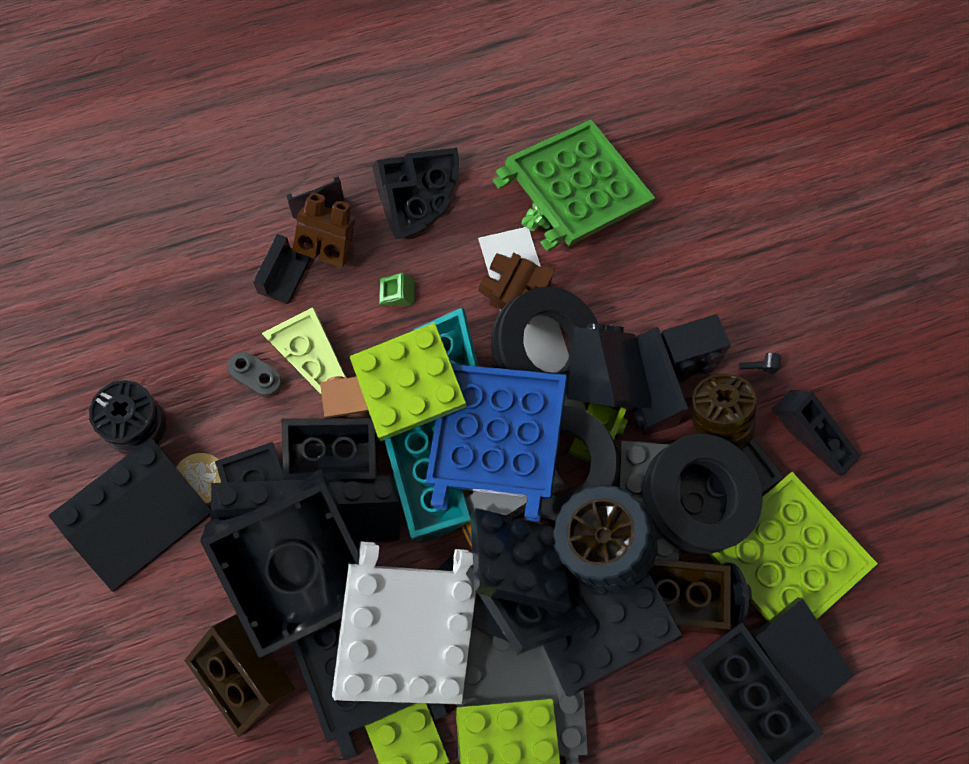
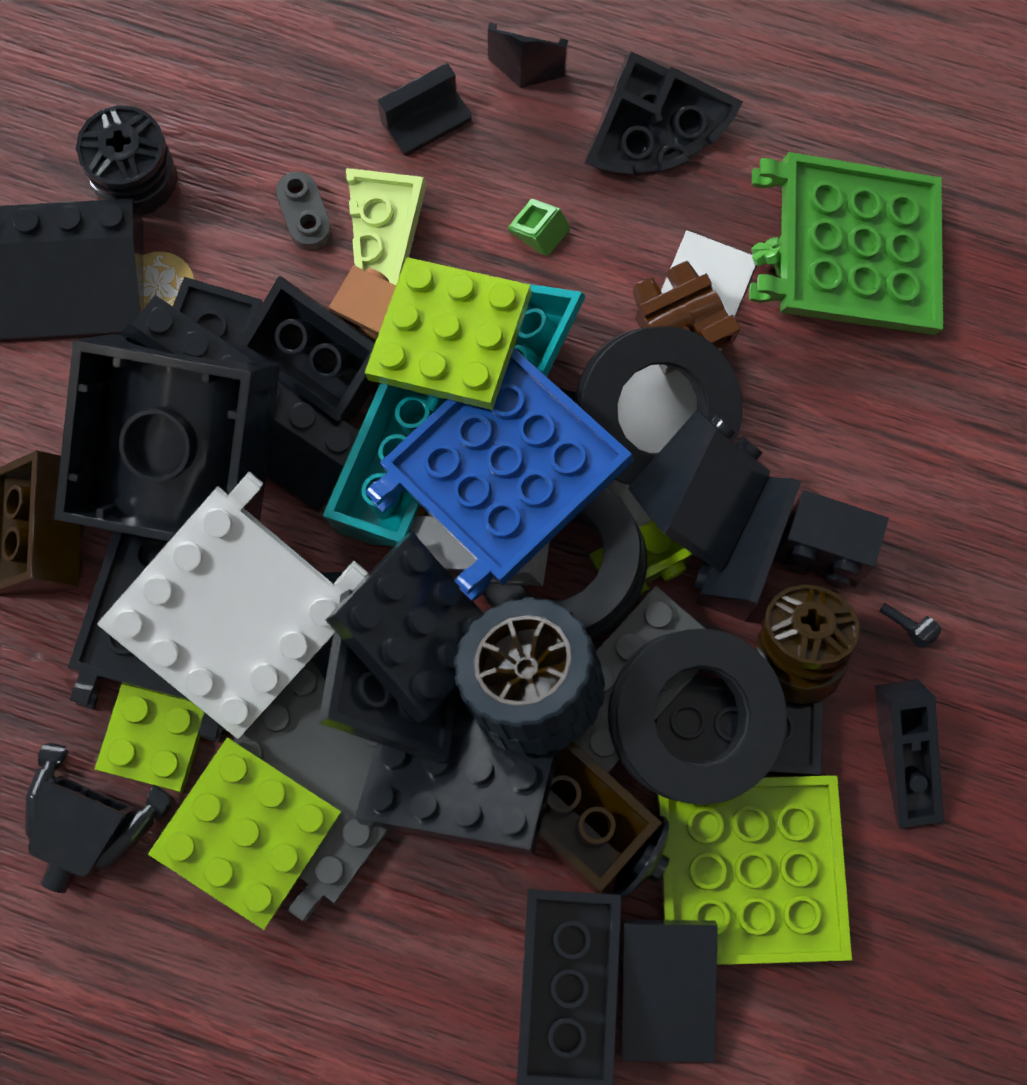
camera: 40 degrees right, 5 degrees up
(325, 229) = (507, 93): reddish brown hips -> none

